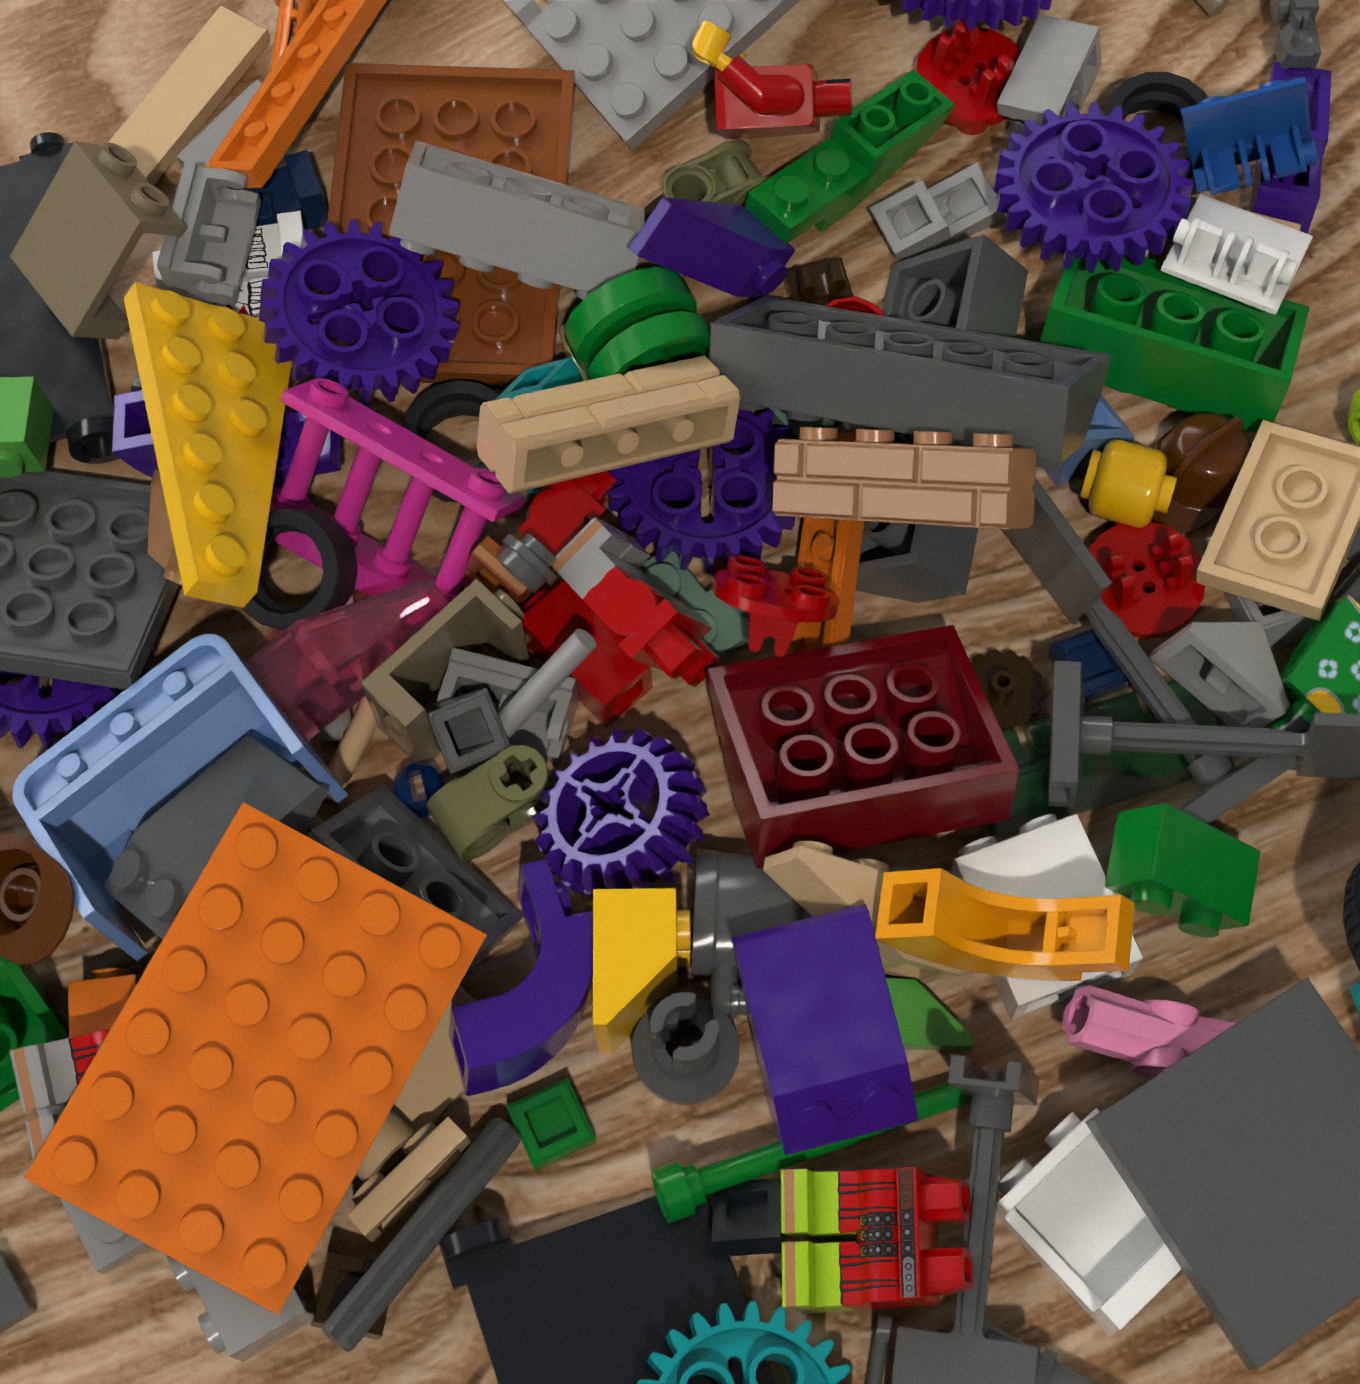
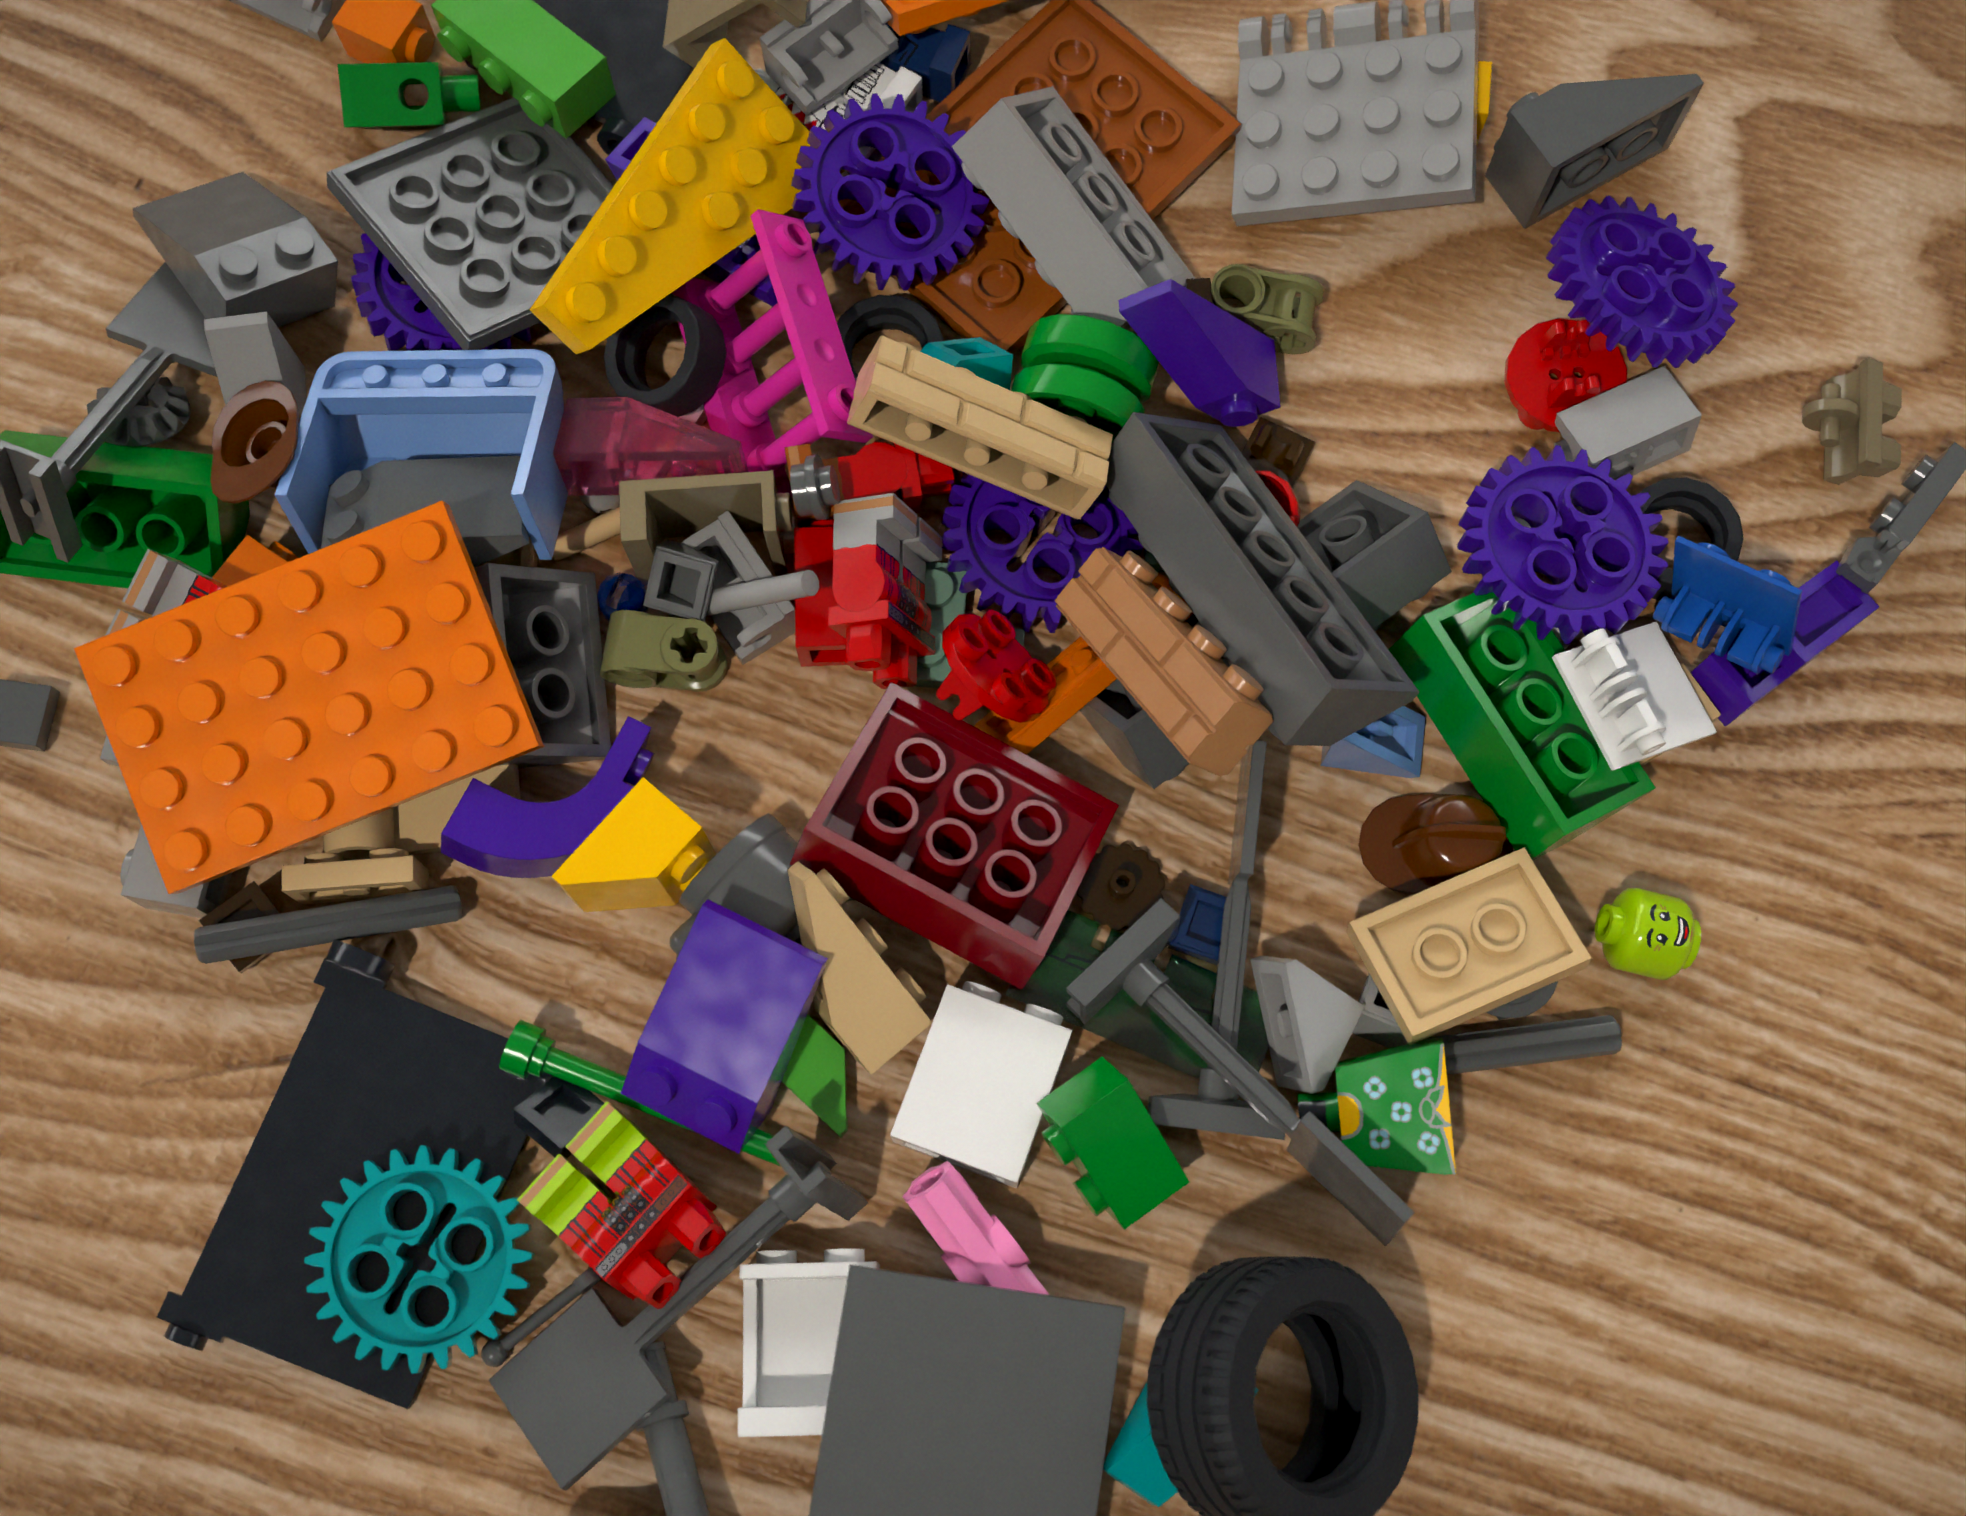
camera: 40 degrees right, 5 degrees up
(551, 1124) = (493, 925): green tile -> none
(635, 780) = (735, 741): dark purple gear -> none
(696, 1070) = (631, 976): dark grey piece -> none
(767, 98) = (1360, 259): red torso -> none
(853, 161) = (1399, 371): green slope -> none
(937, 216) = (1424, 468): light grey slope -> none
(1003, 934) = (914, 1064): light orange arch -> none
(1127, 483) = (1367, 808): yellow head -> none
(1168, 569) = (1284, 883): red plate -> none

